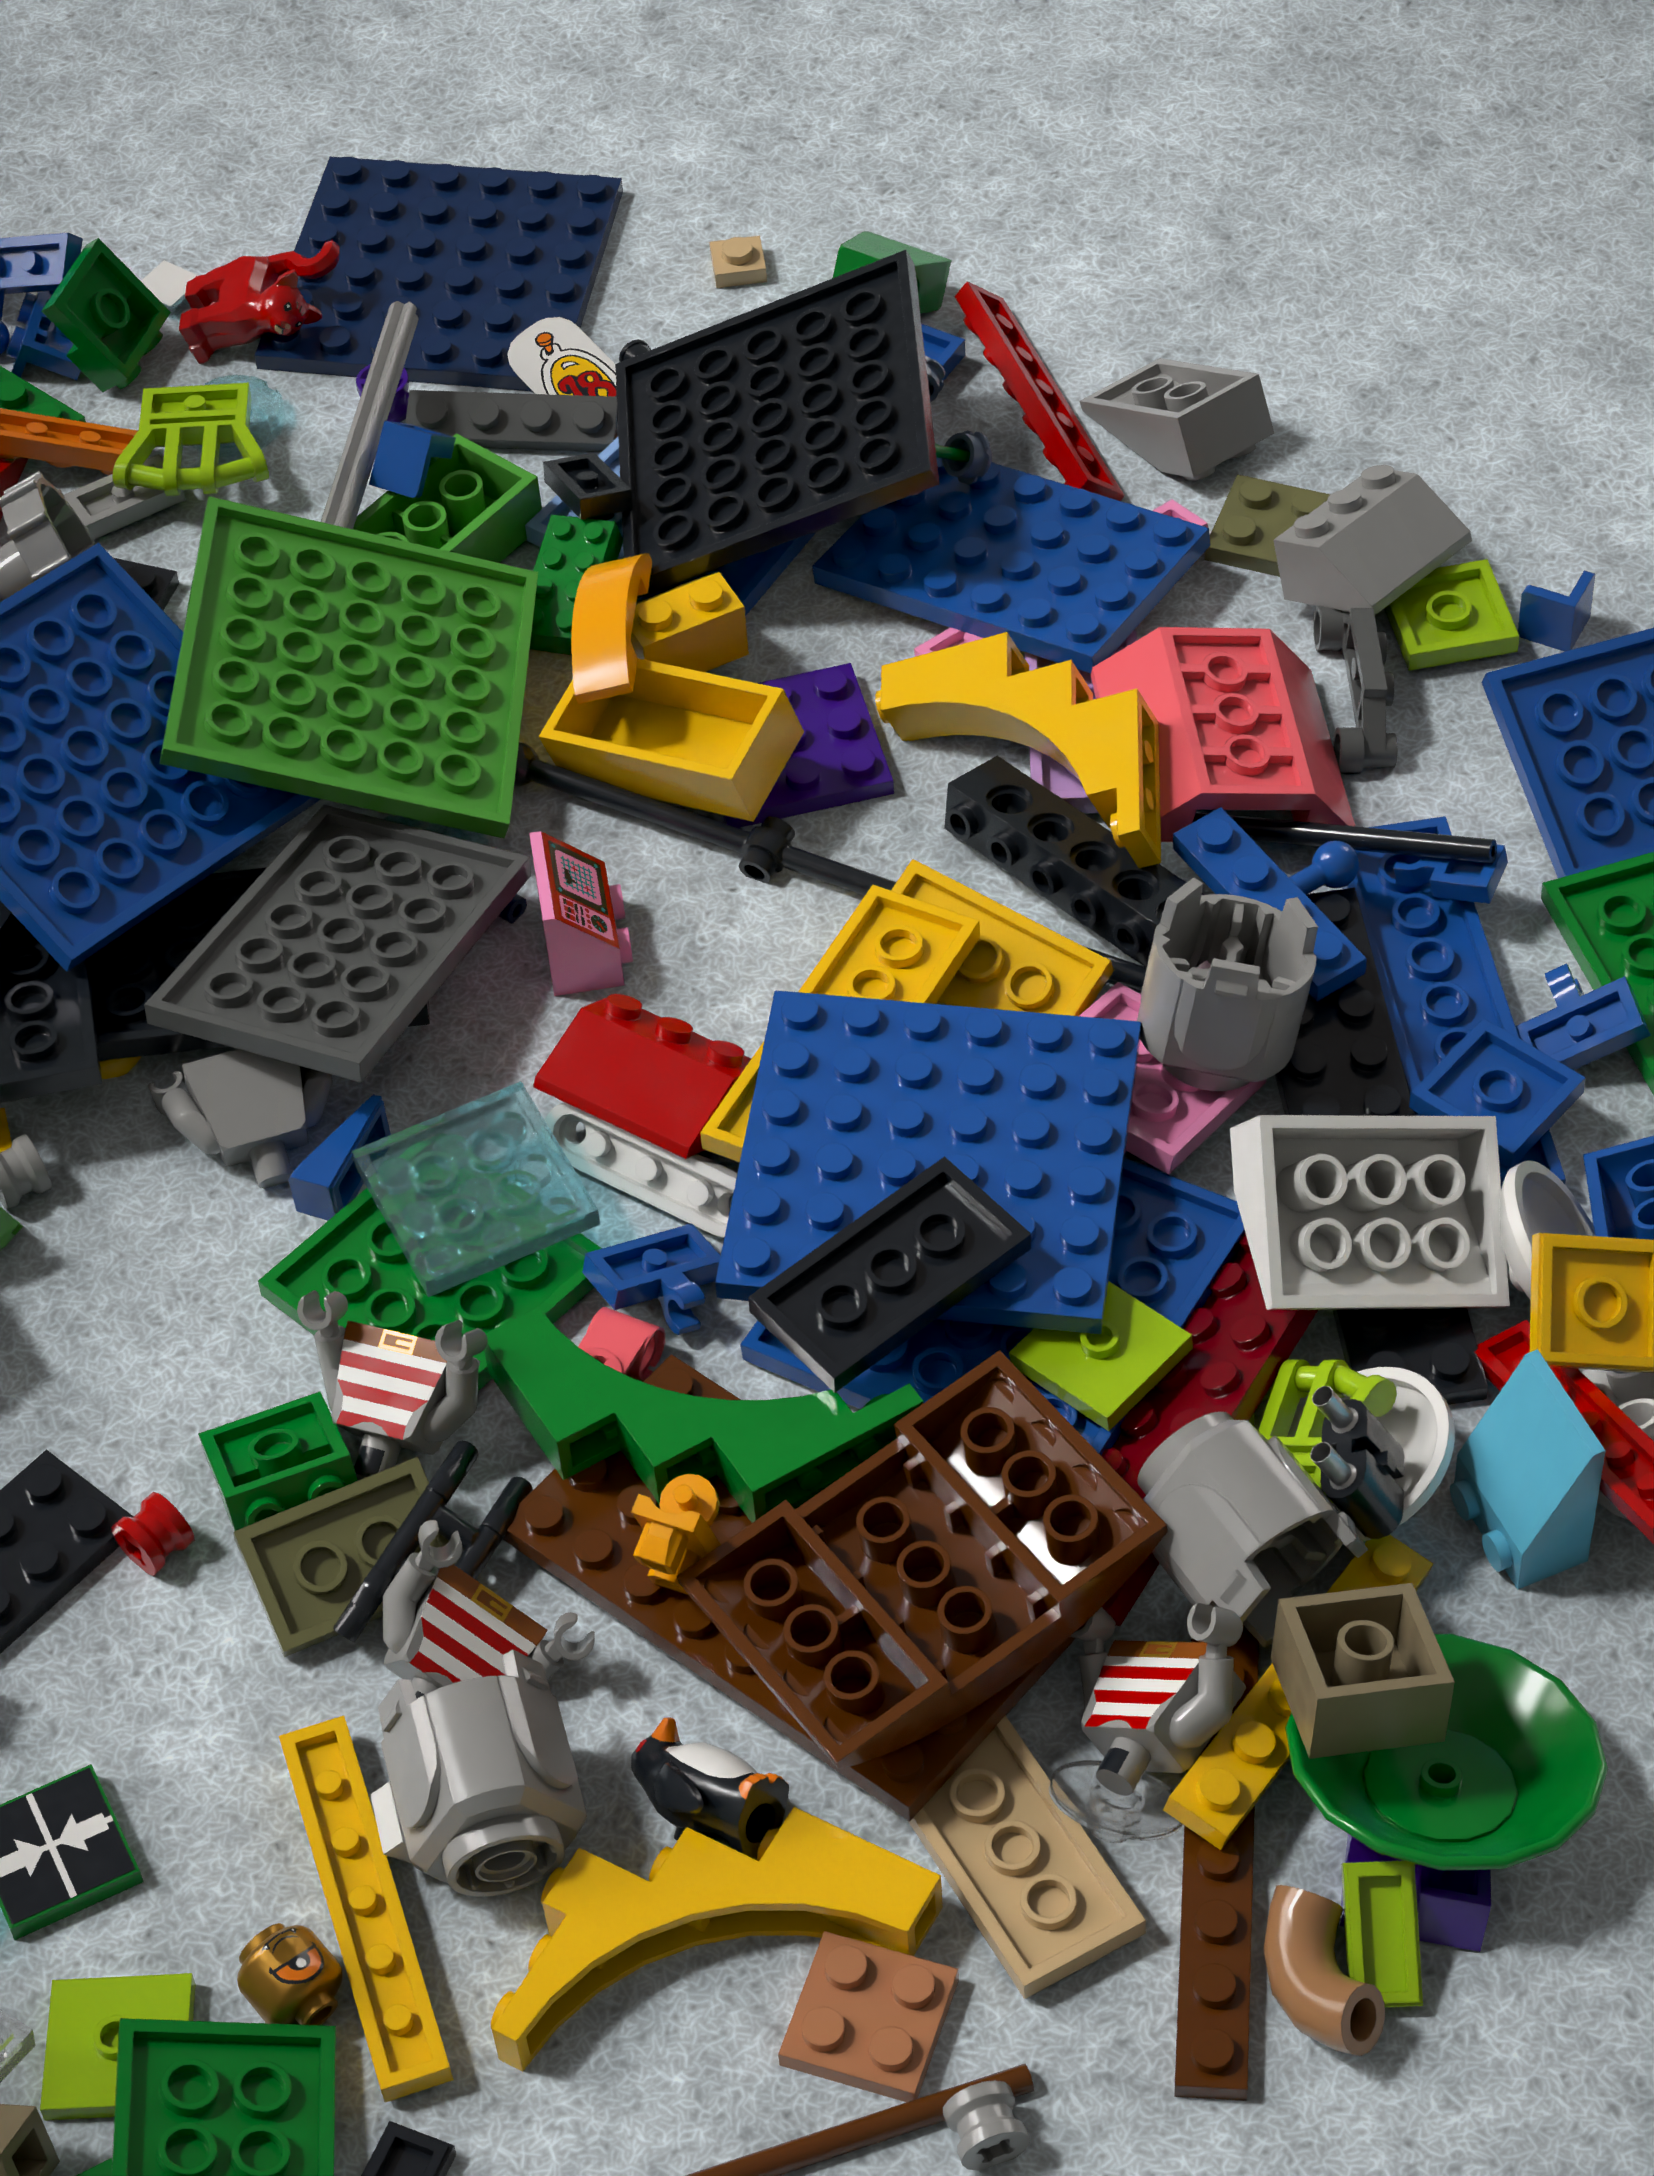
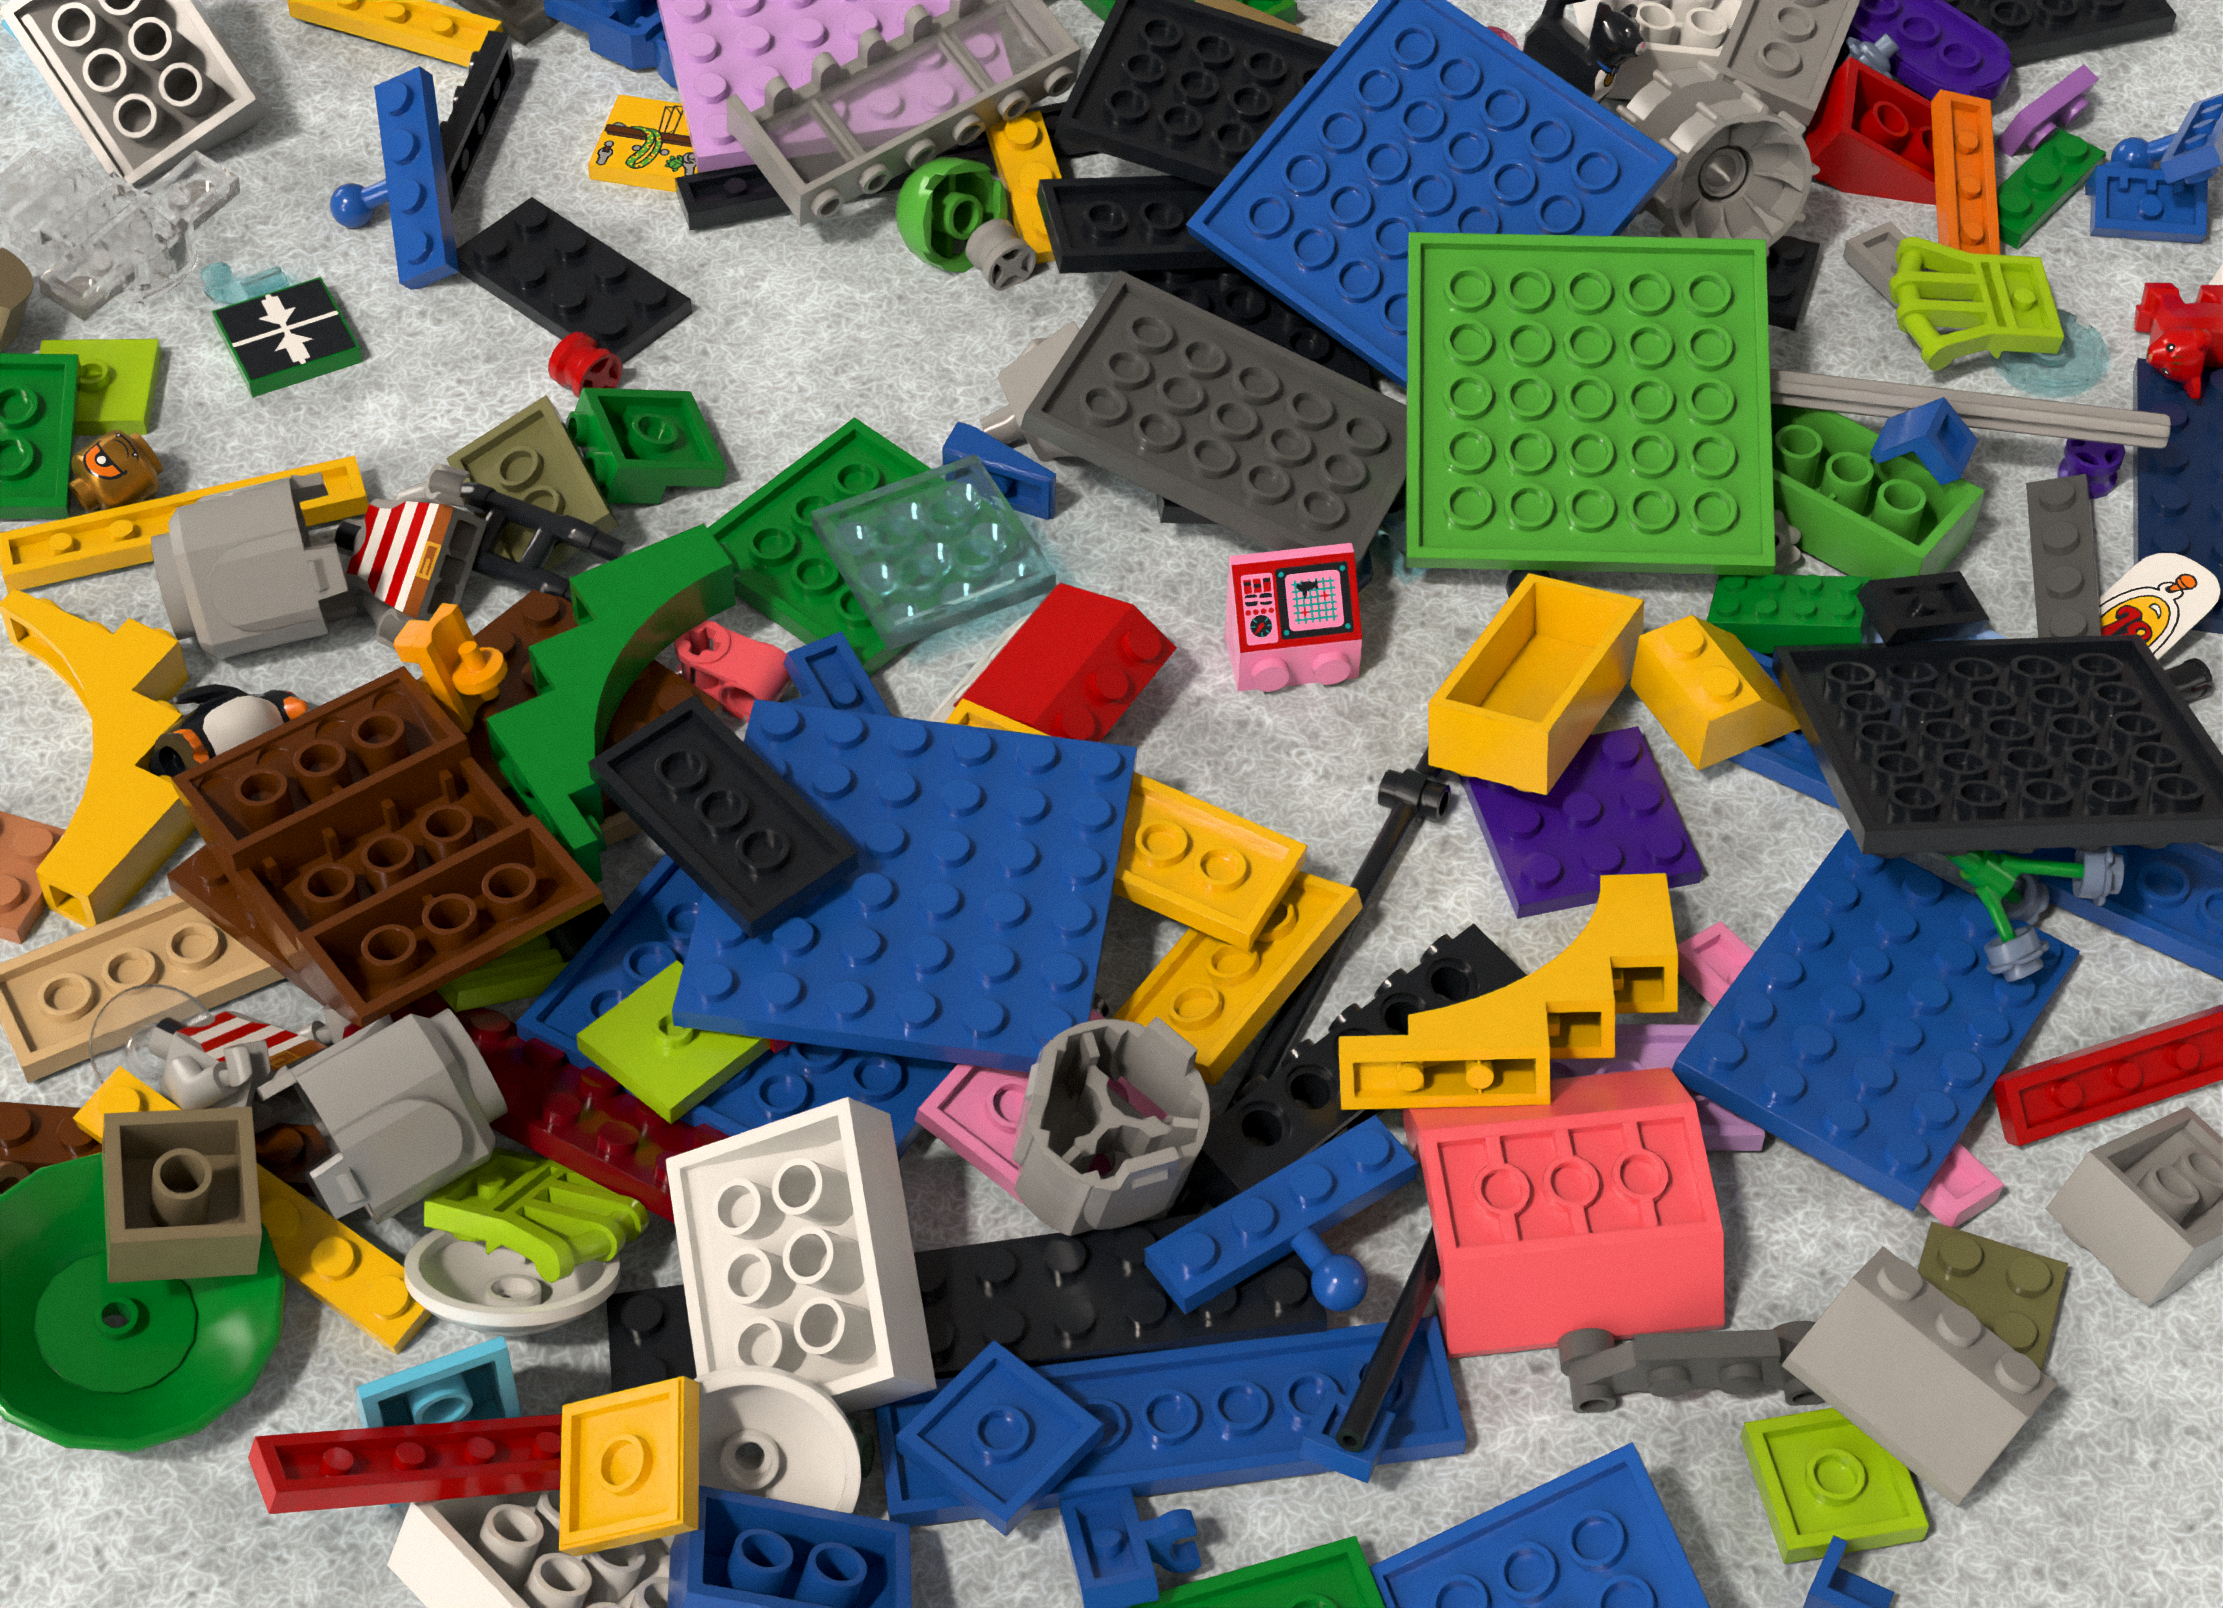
camera: 85 degrees right, 0 degrees up
(106, 317) = (2141, 215): green plate -> none
(391, 1383) = (706, 486): torso -> none
(603, 625) = (1605, 593): light orange slope -> none
(1359, 1464) = (449, 1229): black piece -> none

